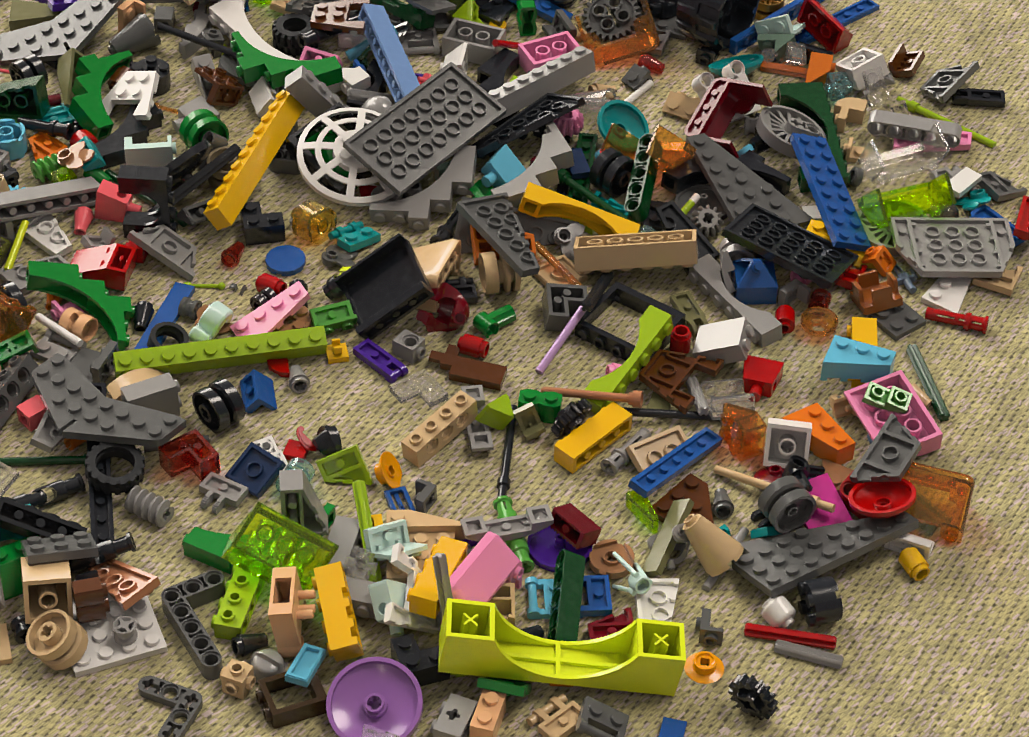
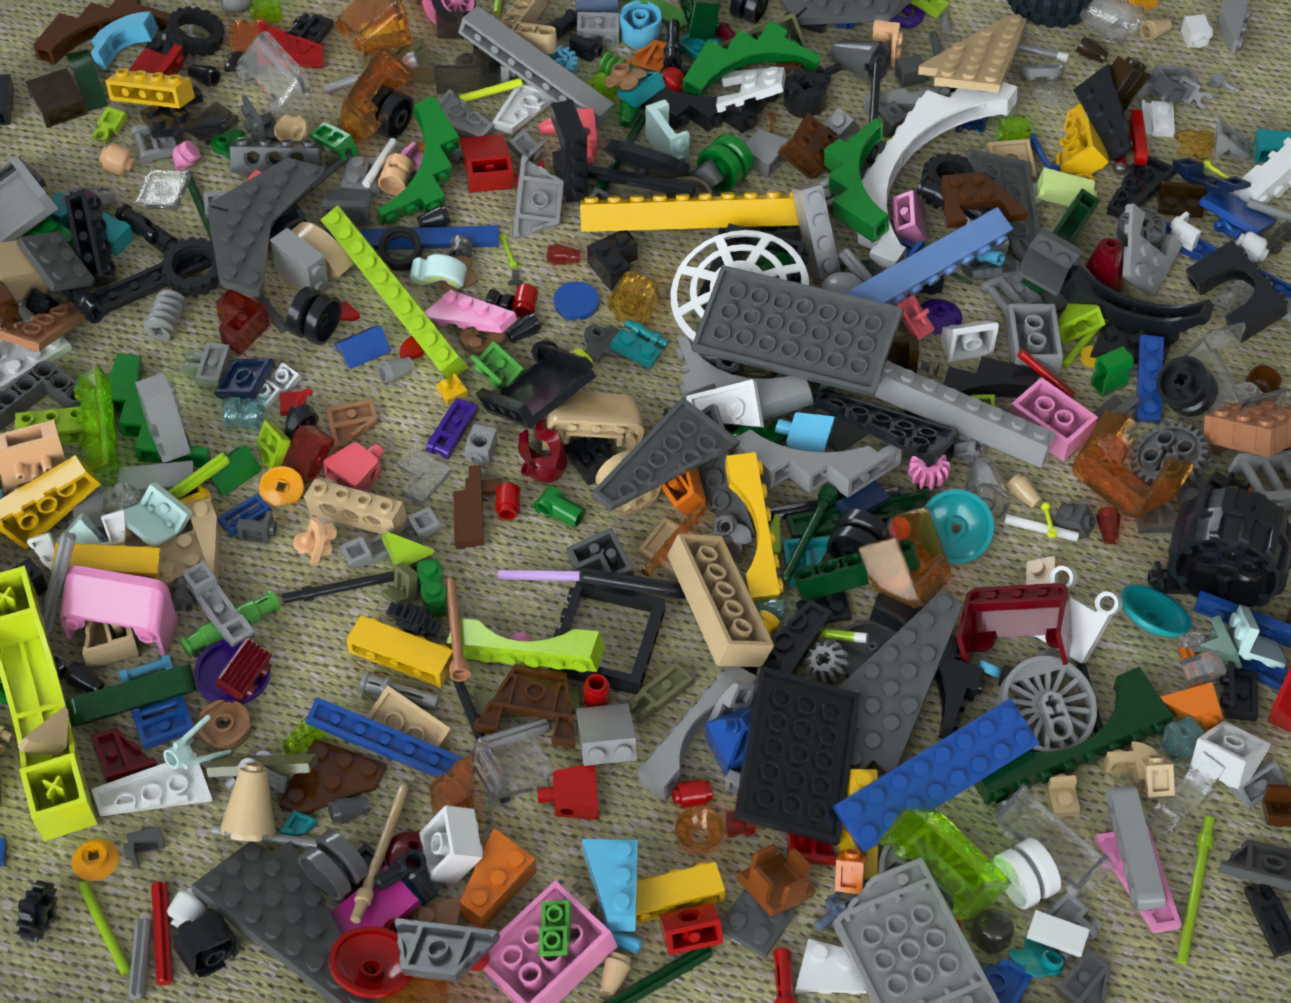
camera: 70 degrees right, 10 degrees up
(338, 413) = (350, 421): none -> medium nougat wing
(342, 497) = (240, 469): none -> green panel
(370, 439) = (308, 451): none -> clear red brick
(392, 423) = (354, 466): none -> coral torso
(461, 458) = (315, 540): none -> light nougat hips
(462, 183) = (736, 402): none -> white wing
(591, 647) = (49, 736): none -> tan slope
(646, 88) = (1052, 533): none -> neon yellow hinge
(775, 671) = (104, 928): none -> lime bar
(868, 97) = (1158, 776): none -> tan bracket
(899, 339) = (691, 928): none -> red brick
(914, 170) = (1030, 872): none -> white wheel

